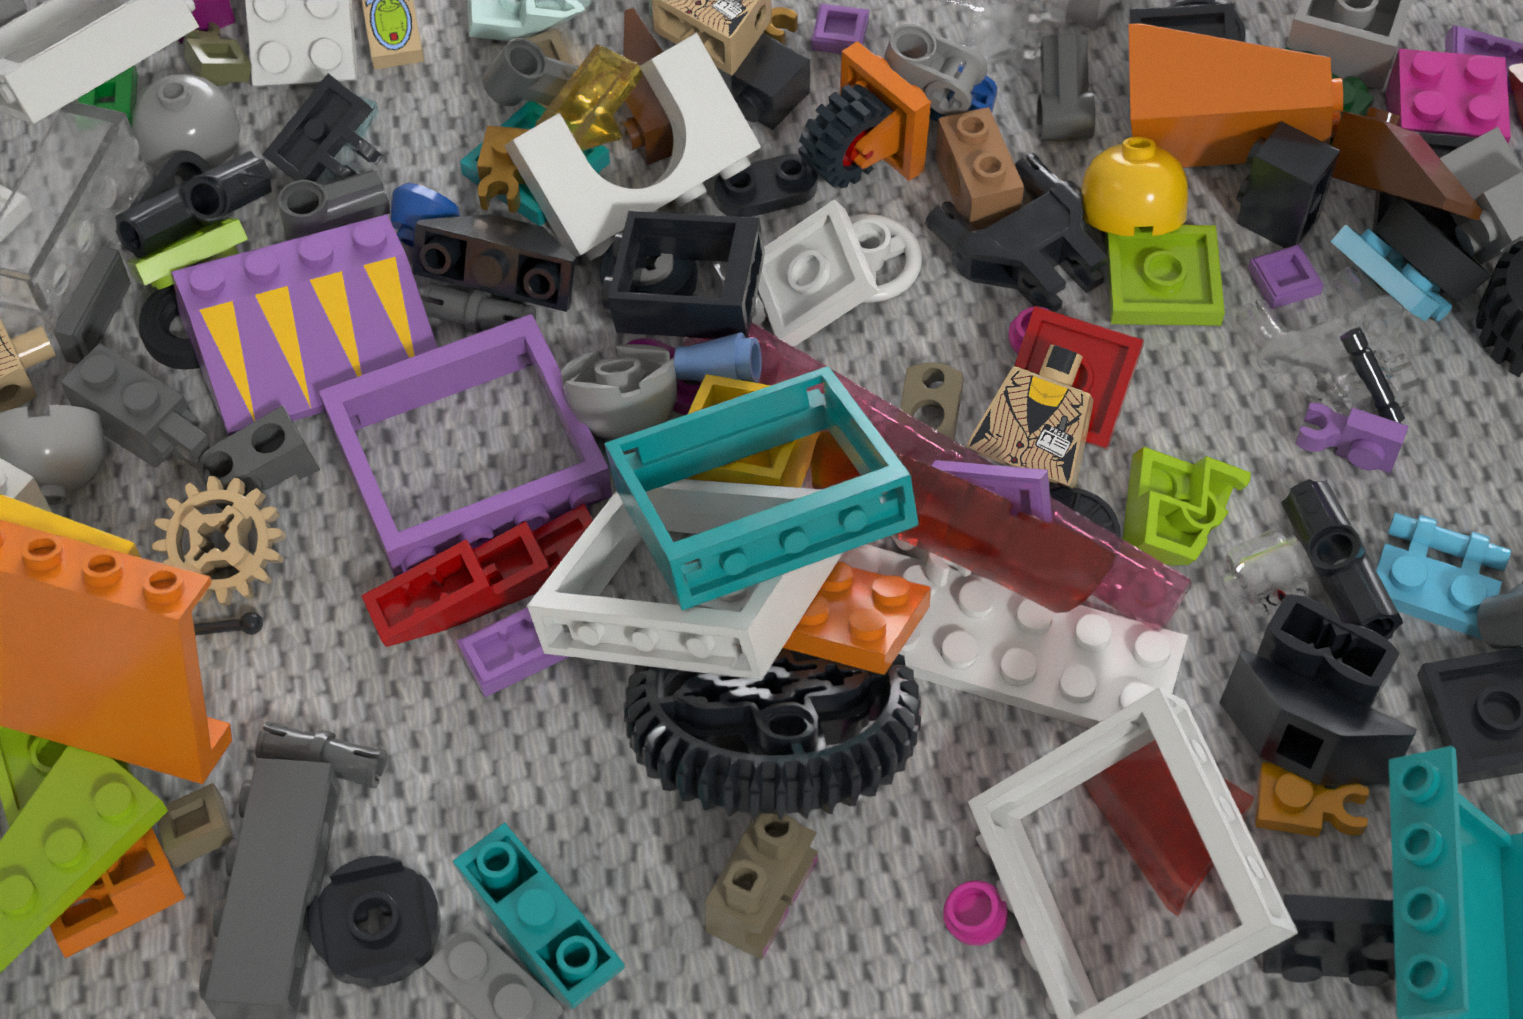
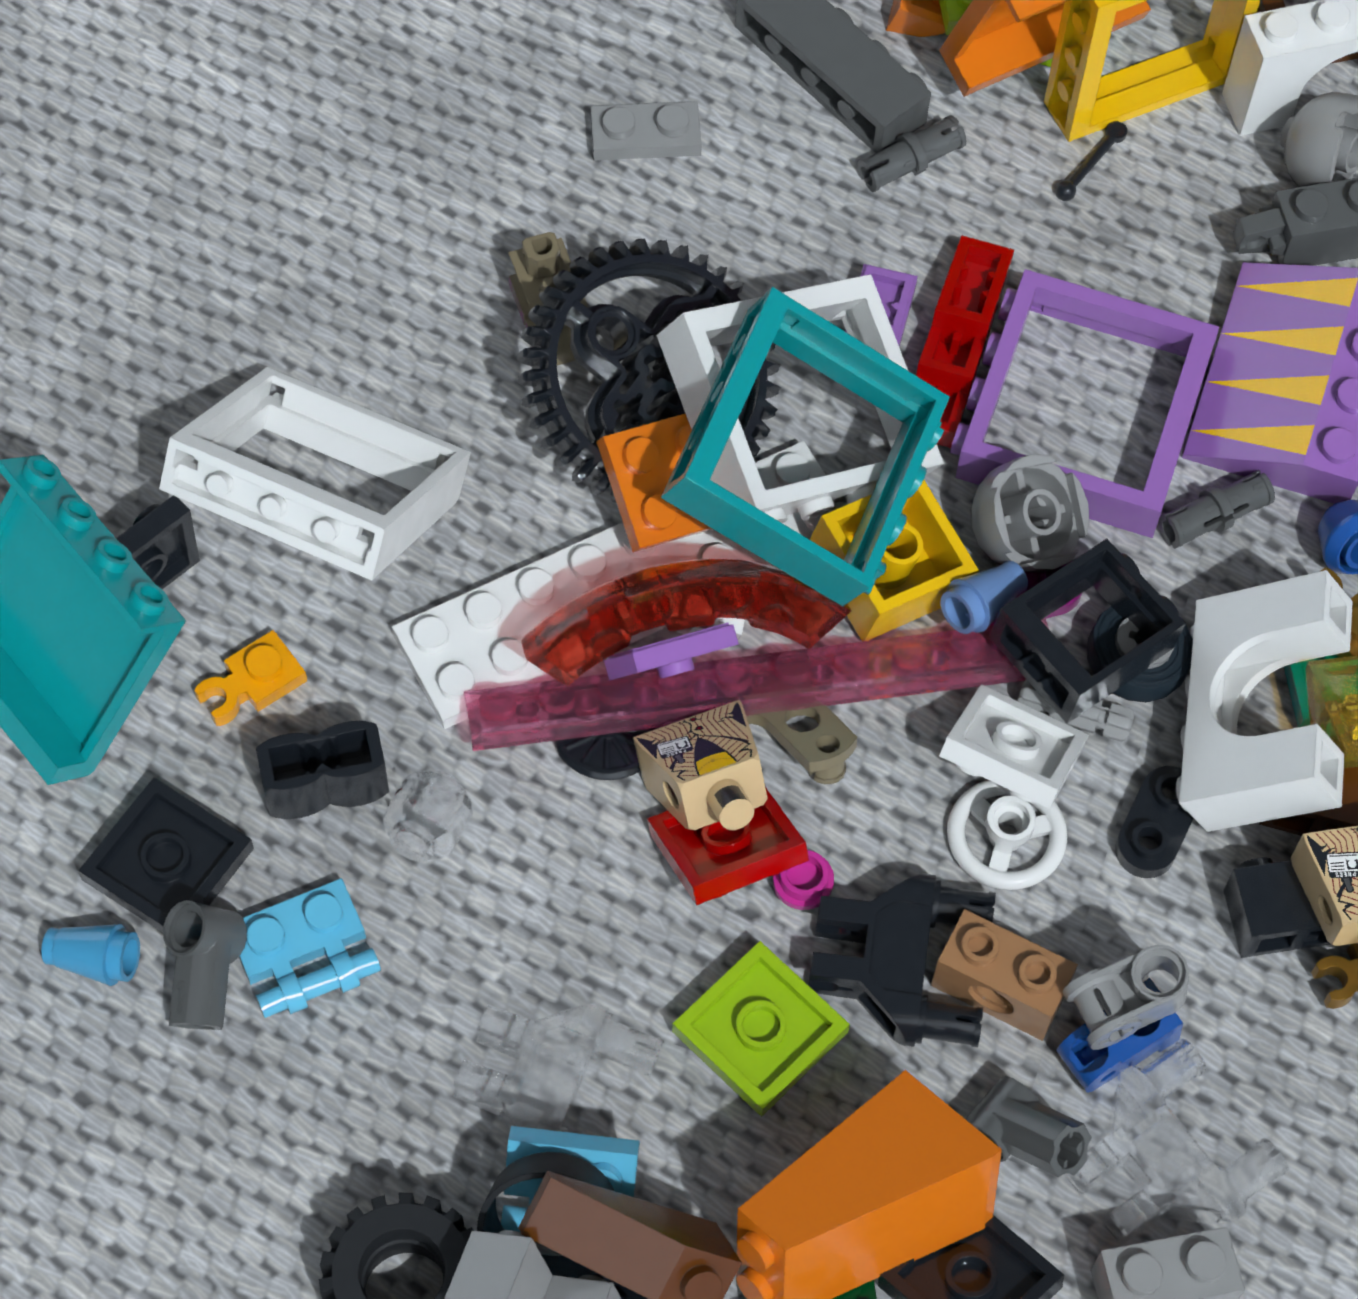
camera: 130 degrees right, 5 degrees up
(195, 825) = (920, 51): dark tan plate -> none
(235, 524) = (1145, 196): tan gear -> none
(259, 455) = (1203, 273): dark grey leg -> none
(382, 957) = (749, 124): black plate -> none
(496, 257) = (1248, 542): black slope -> none
(537, 918) = (652, 163): teal slope -> none
(839, 28) = (1291, 1042): medium lavender tile -> none
(867, 123) = (1131, 908): plate -> none
(975, 913) = (404, 404): dark pink plate -> none
(1133, 188) = (847, 1060): yellow cylinder -> none
(1155, 824) = (326, 597): clear red slope -> none
(1177, 503) = (550, 826): lime slope -> none
(1285, 185) = (729, 1170): black brick -> none
(1285, 276) = (668, 1133): medium lavender tile -> none
(1311, 726) = (283, 703): black slope -> none
(1329, 537) = (380, 865): black piece -> none
(1362, 437) = (458, 1005): medium lavender plate -> none
(1371, 375) = (492, 1050): black wheel -> none

